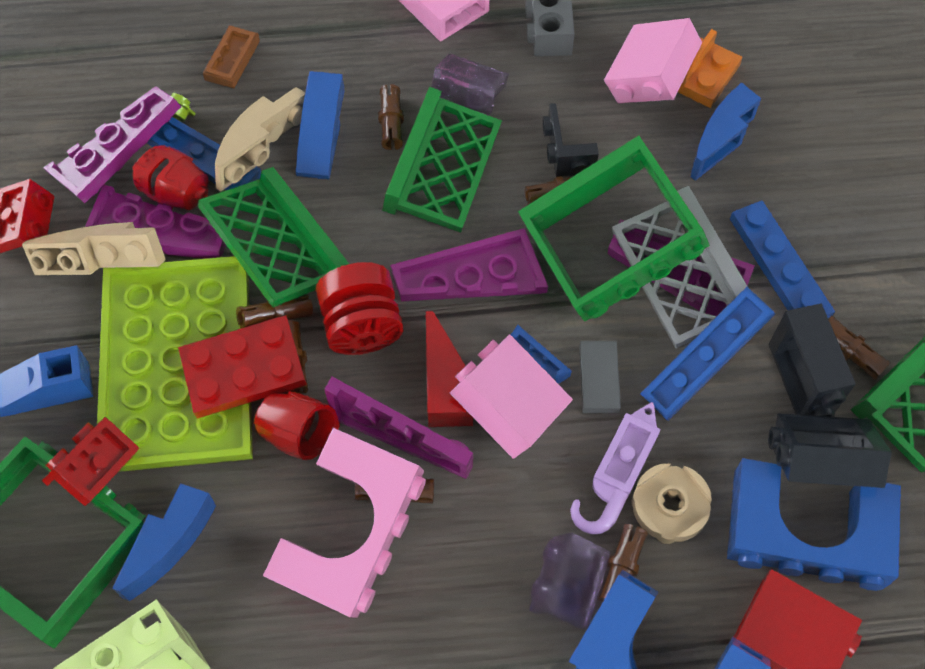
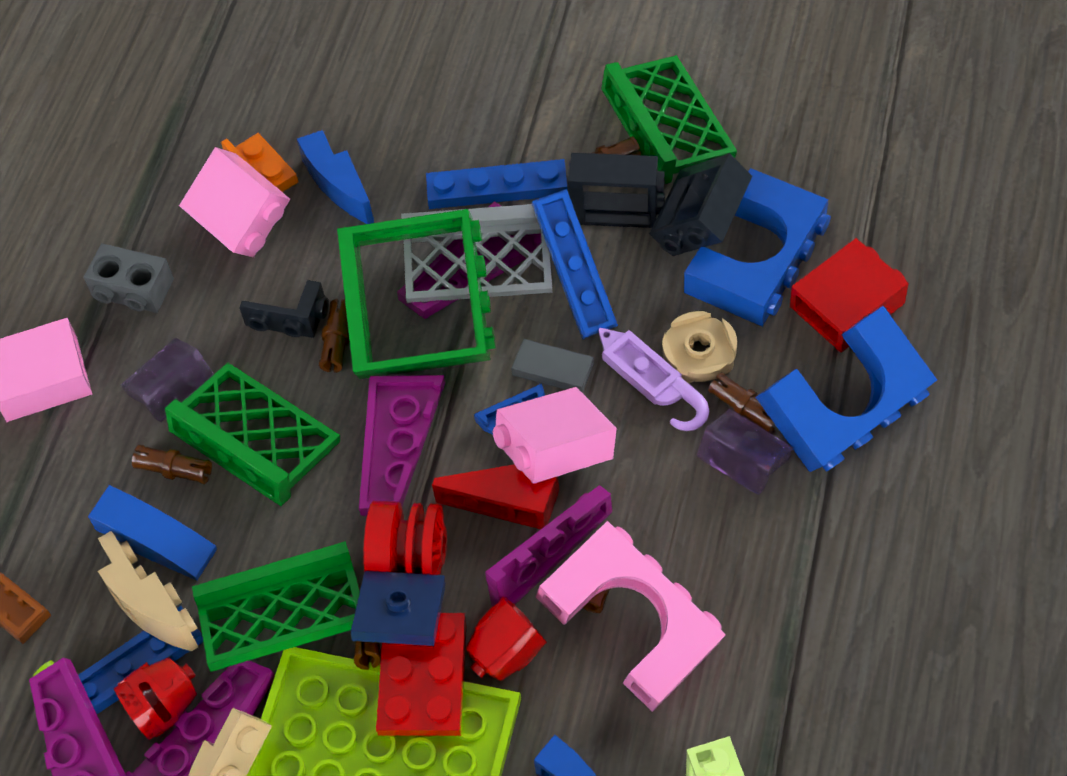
camera: 65 degrees left, 5 degrees down
(285, 322) = (398, 608): none -> dark blue plate

